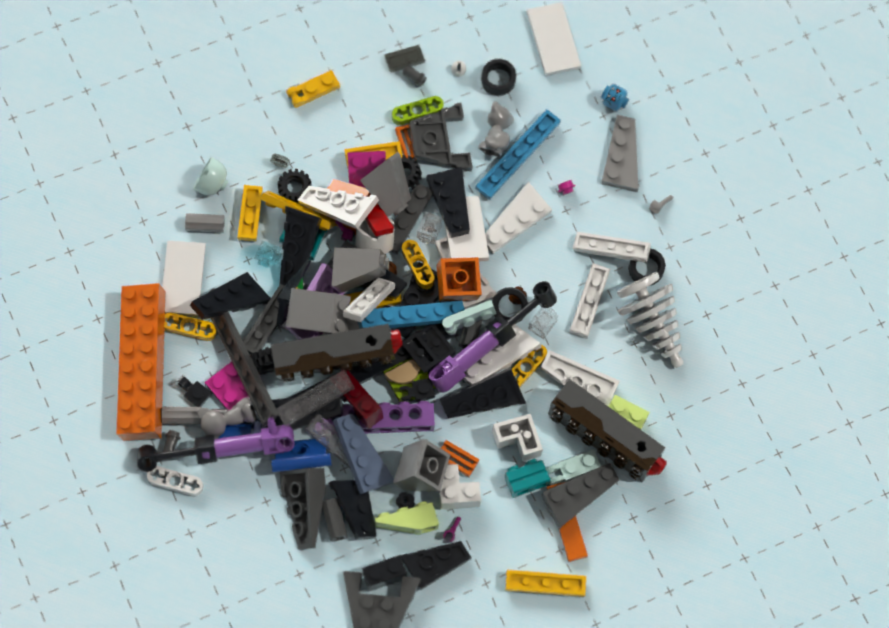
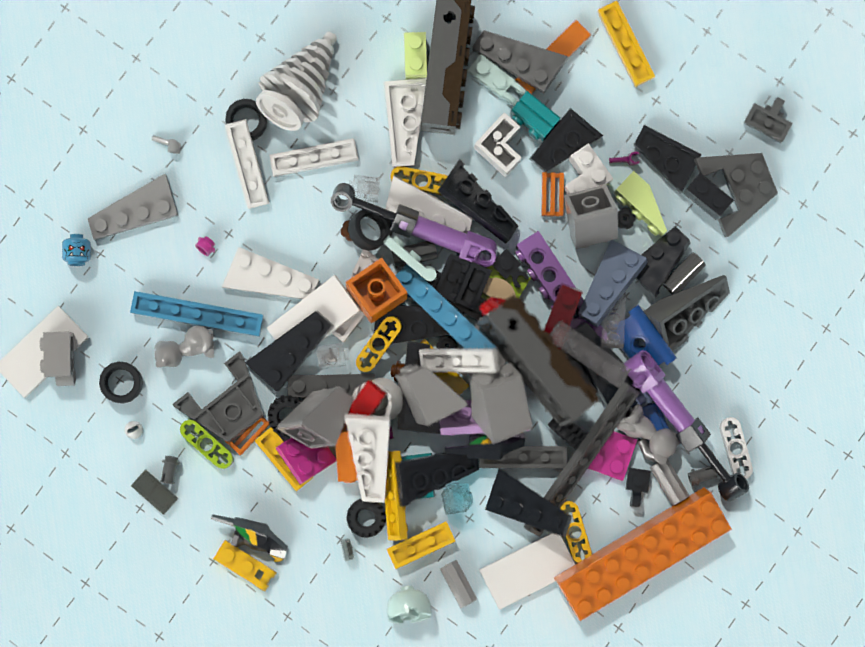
camera: 120 degrees left, 15 degrees up
(330, 105) = (255, 536): none -> black animal
(494, 490) = (565, 139): none -> black wing
(541, 44) = (58, 357): none -> light grey hinge

